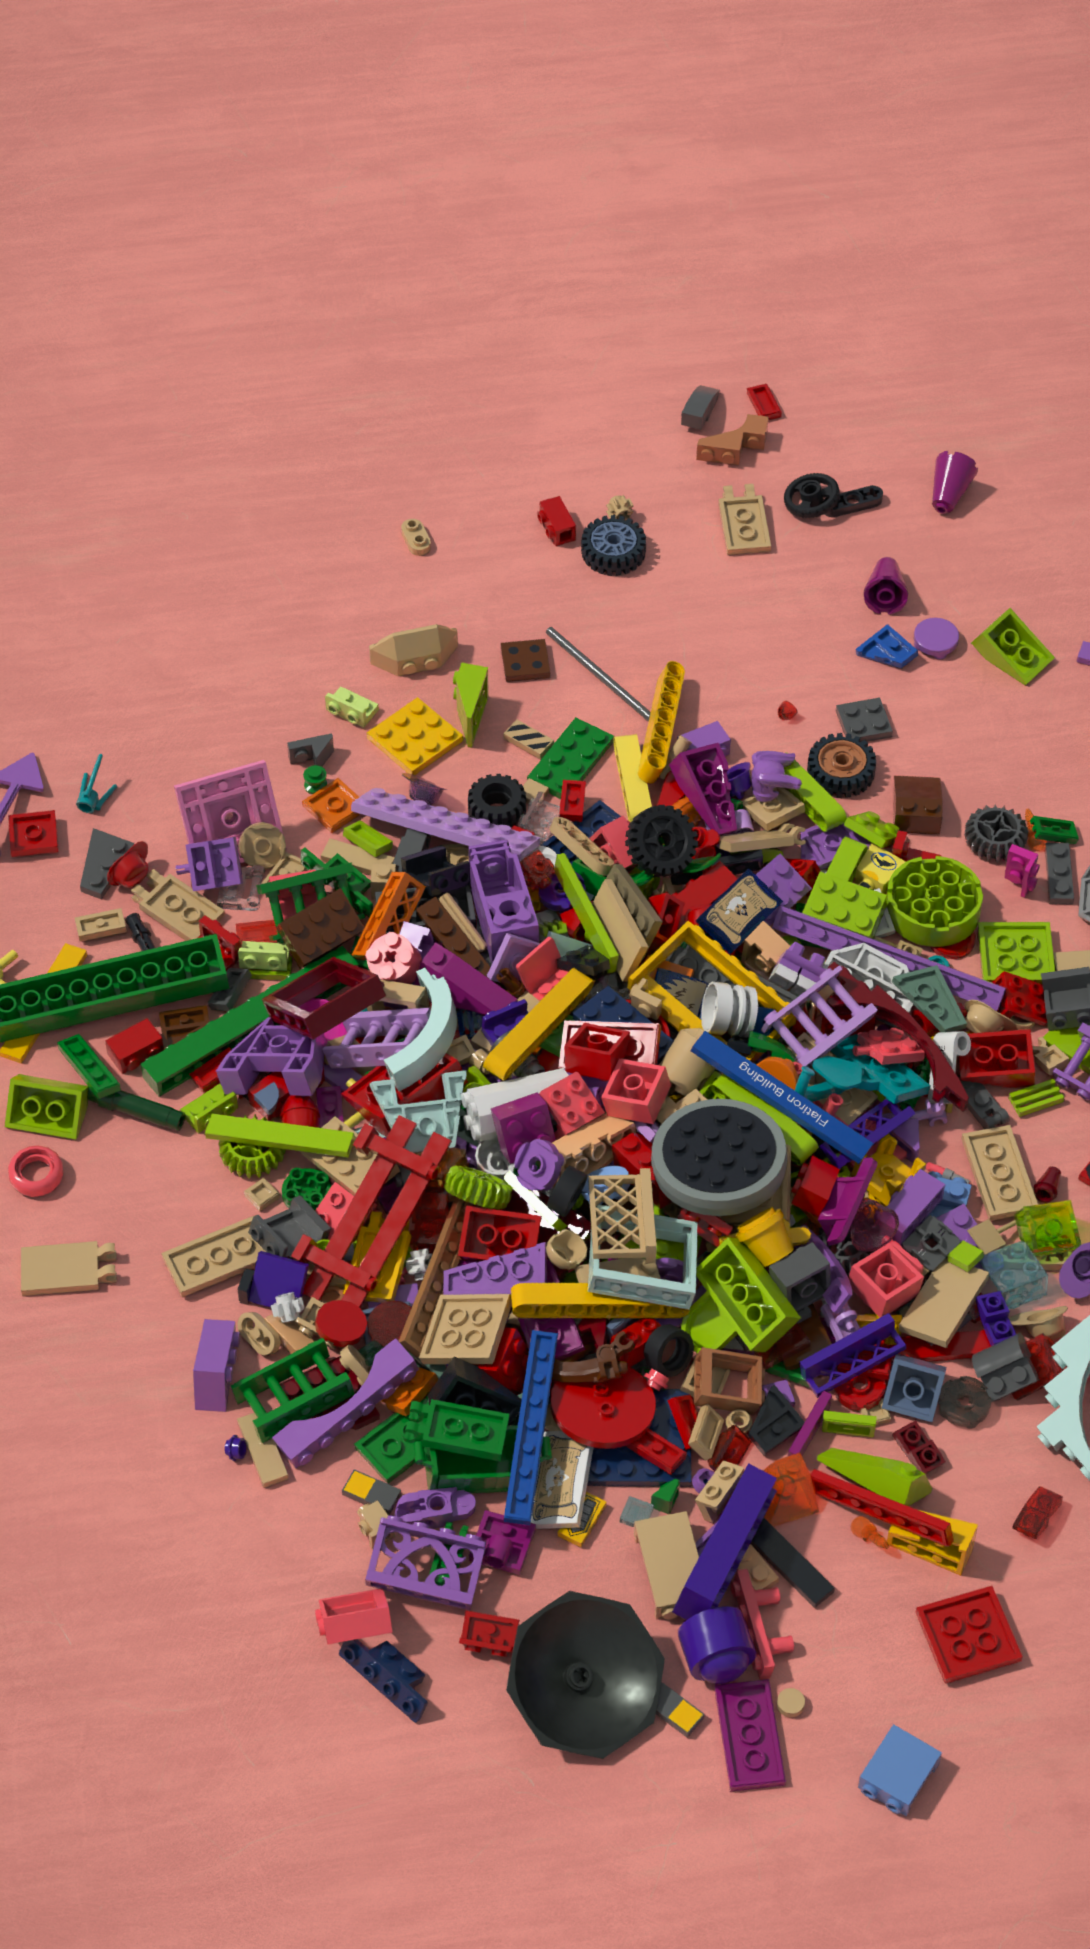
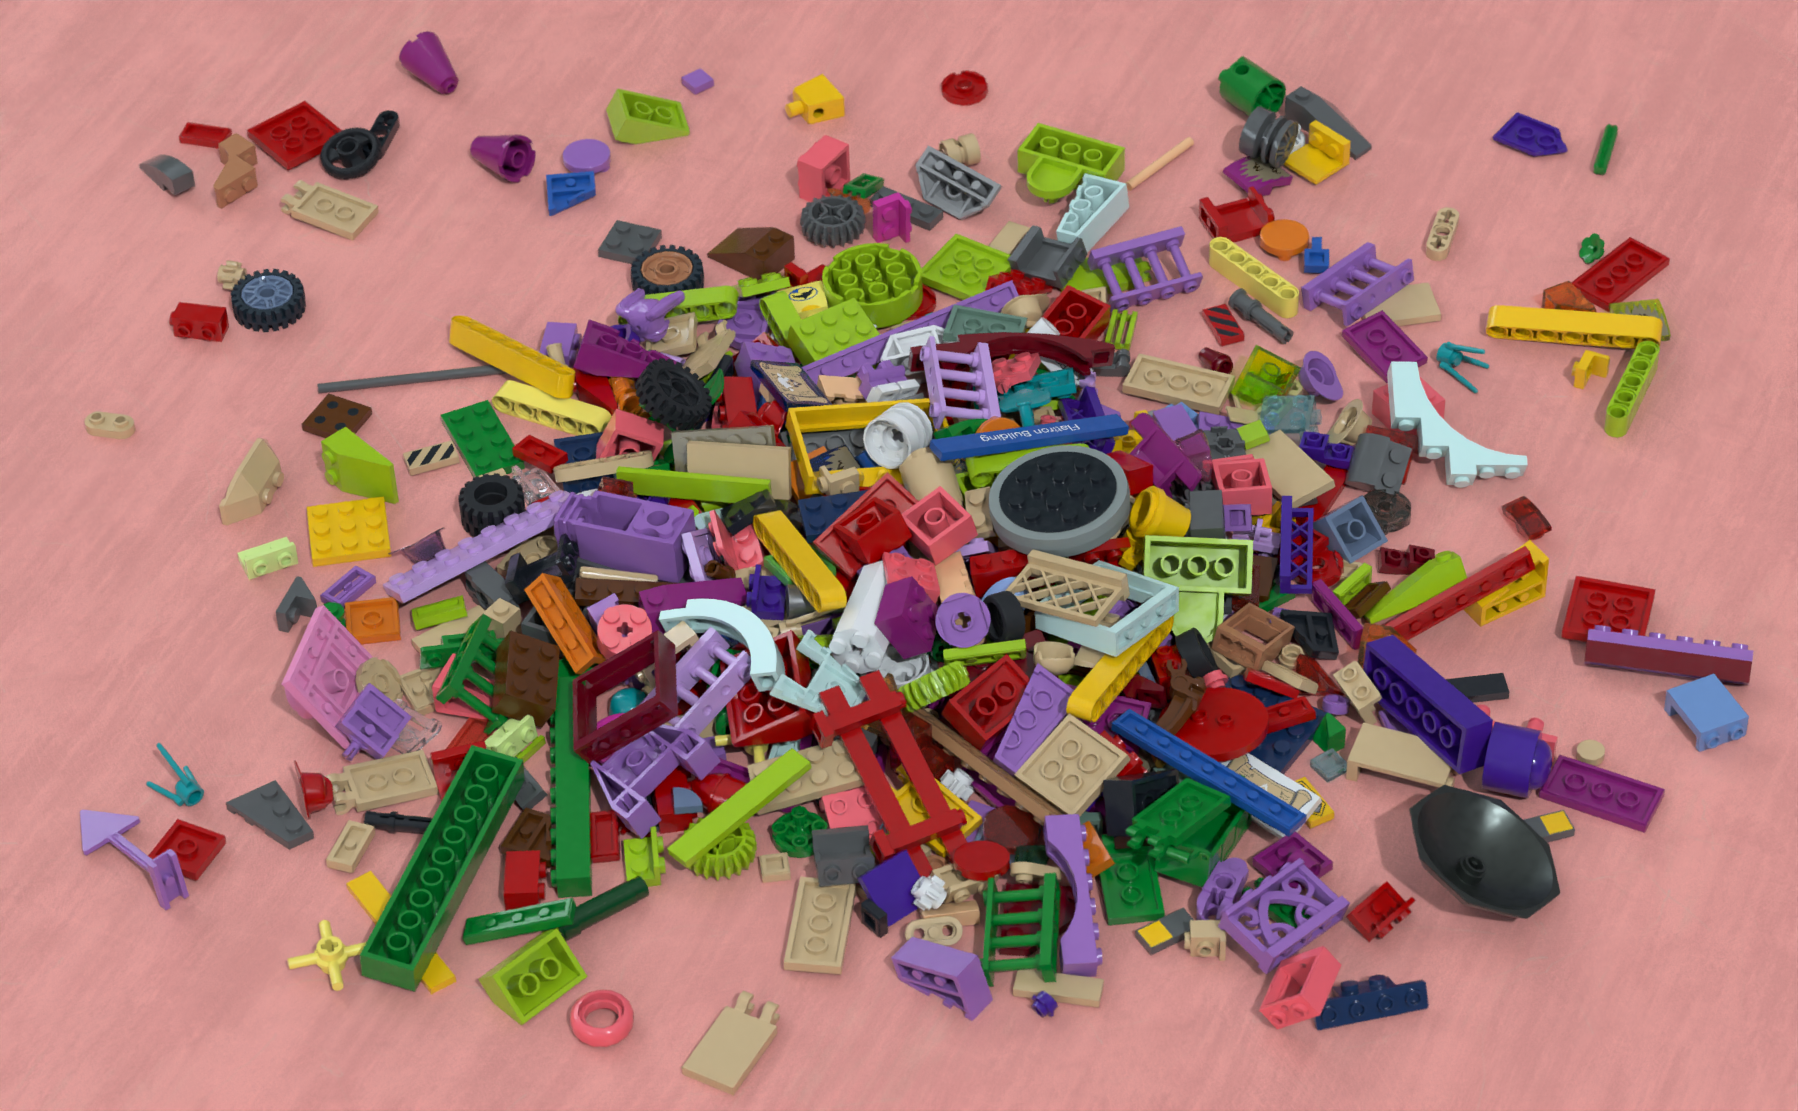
camera: 55 degrees left, 10 degrees down
(355, 774) = (351, 590): none -> medium lavender tile
(786, 710) = (574, 279): clear red hinge -> none
(806, 451) = (293, 134): none -> red plate
(842, 1440) = (1367, 598): none -> reddish brown tile
(862, 1528) = (1456, 631): clear orange bar -> none
(942, 1707) = (1668, 656): none -> brick
(1042, 792) = (823, 167): none -> coral brick

